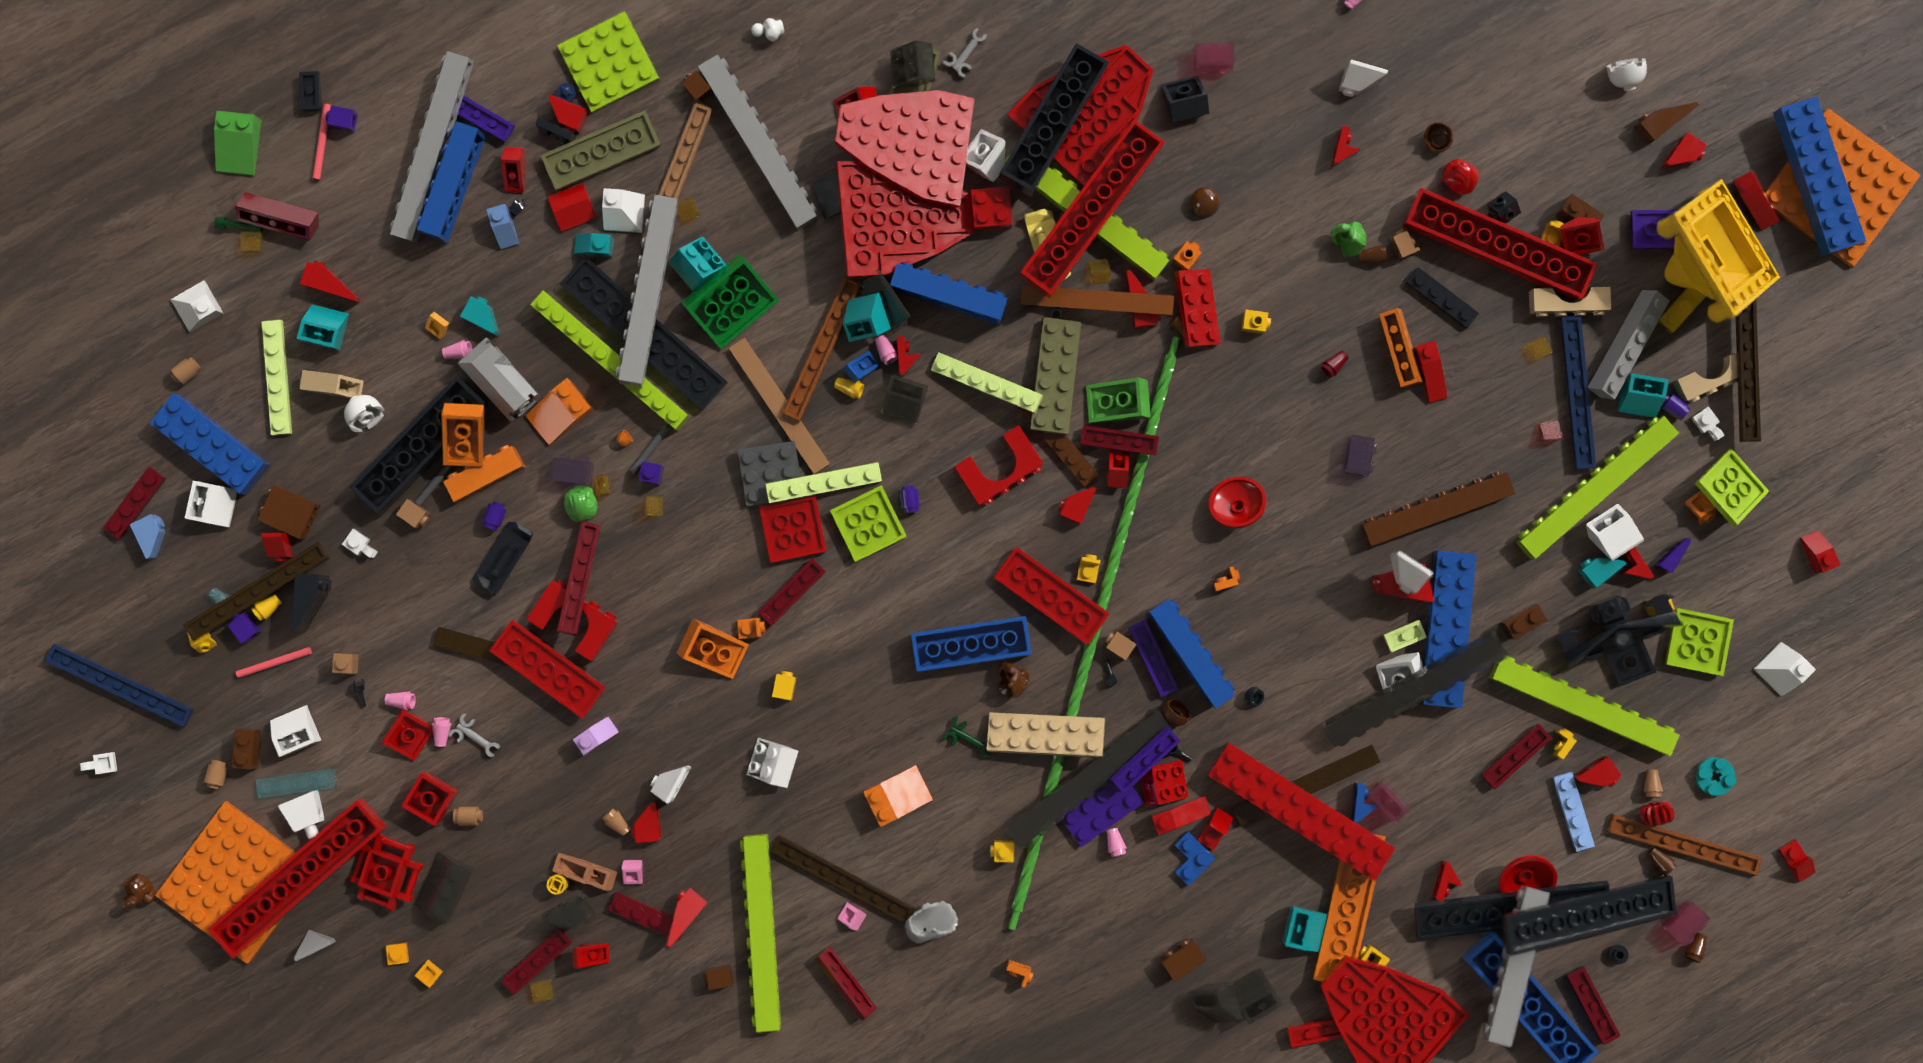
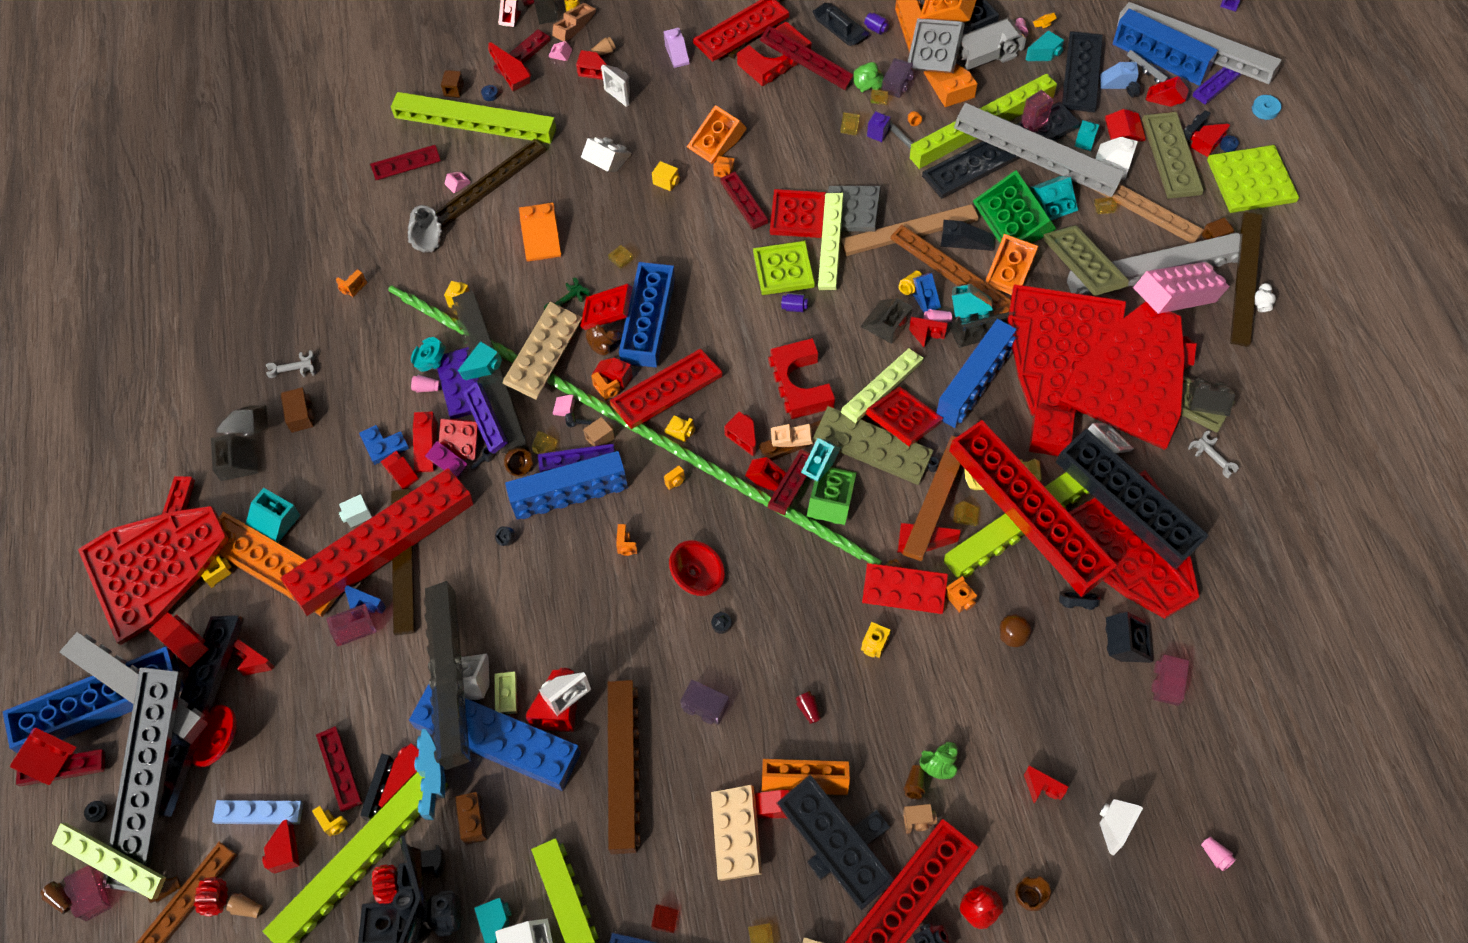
camera: 110 degrees right, 25 degrees down
(480, 195) = (1147, 67): none -> plate
(504, 68) = (1266, 107): none -> dark azure piece
(504, 268) = (1082, 71): none -> black plate
(527, 435) = (935, 45): none -> plate
(596, 303) = (1036, 111): none -> clear pink brick
(717, 930) = (489, 93): none -> dark blue tile
(754, 50) = (1246, 279): none -> dark brown tile
(774, 343) = (963, 235): none -> black slope
(781, 213) = (1086, 260): none -> olive plate
(799, 110) = (1181, 287): none -> bright pink brick
(800, 288) = (1011, 264): none -> orange slope
(903, 699) = (620, 256): none -> clear yellow plate
(977, 687) = (606, 306): none -> red plate
(1017, 352) = (904, 416): none -> red plate
(1046, 658) = (615, 369): none -> red slope
(1064, 662) = (604, 387): none -> orange bracket
(1071, 455) = (789, 437): none -> light nougat slope
(1079, 843) = (428, 354): none -> teal plate
(1090, 784) = (480, 362): none -> teal slope
(1092, 418) = (820, 459): none -> teal slope
(1097, 693) = (564, 405): none -> bright pink slope
(1126, 977) = (304, 365): none -> light grey bar
(1145, 696) = (544, 443): none -> clear yellow slope
(1147, 555) = (674, 478): none -> light orange plate
(1163, 158) = (1071, 599): none -> black plate
(1194, 784) = (446, 459): none -> magenta plate
(1273, 851) = (354, 511): none -> light aqua brick
(1277, 465) = (721, 622): none -> black tile
(1451, 307) = (835, 842): none -> black plate
(1456, 951) = (179, 638): none -> red brick
(1464, 393) = (736, 833): none -> tan plate
(1498, 672) = (434, 782): none -> dark azure slope
(1499, 695) = (401, 772): none -> red slope
(1522, 713) = (377, 787): none -> black plate
(1595, 1019) = (42, 756): none -> red bracket
(1600, 670) = (385, 883): none -> red gear
(1658, 915) = (109, 861): none -> yellowish green plate

